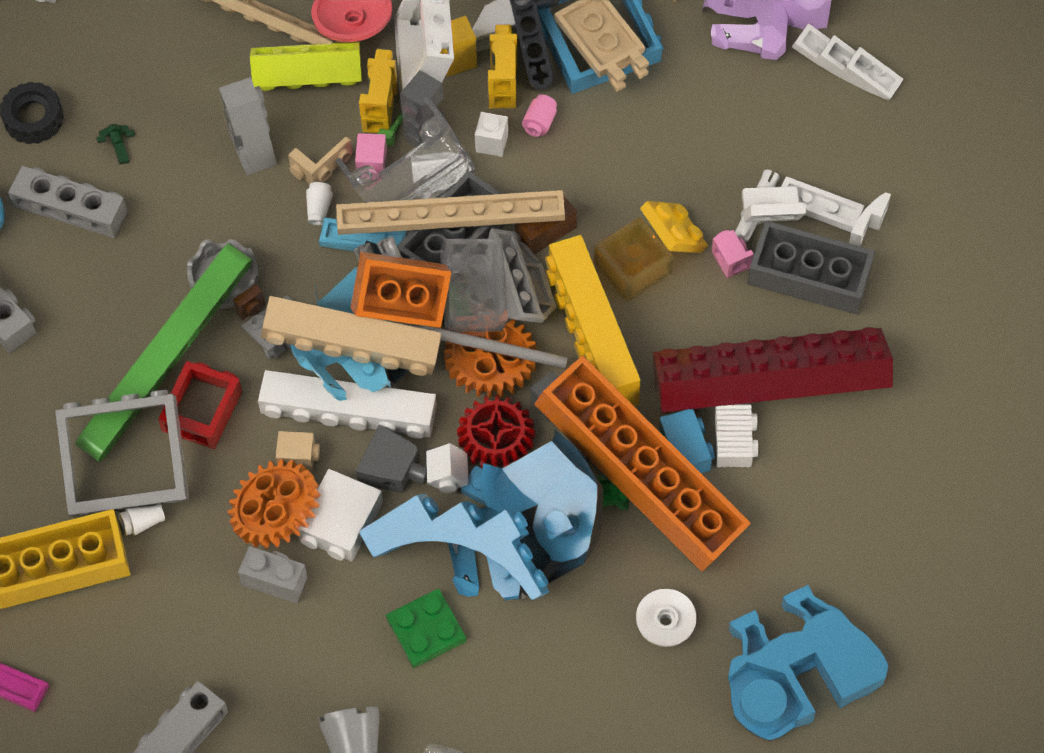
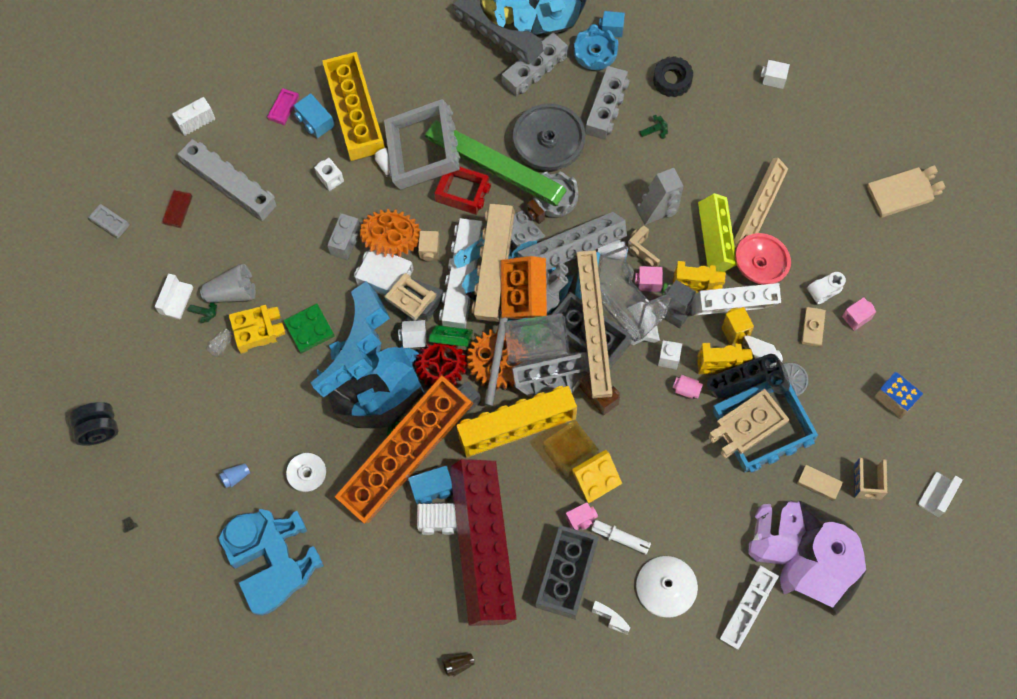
camera: 90 degrees right, 5 degrees up
(45, 628) = (313, 115): none -> dark azure brick
(123, 278) = (549, 137): none -> dark grey dish
(155, 591) = (330, 180): none -> white brick
(313, 239) = (581, 238): none -> light grey brick
(397, 470) = (408, 301): none -> tan plate
(423, 693) = (255, 327): none -> yellow hips
(454, 413) = (451, 335): none -> green tile
(670, 726) = (234, 475): none -> medium blue cone
(772, 204) = (616, 544): white panel -> none
(824, 169) = (664, 600): none -> white dish
(827, 206) = (624, 582): white plate -> none
(942, 410) = (456, 664): none -> dark brown cone

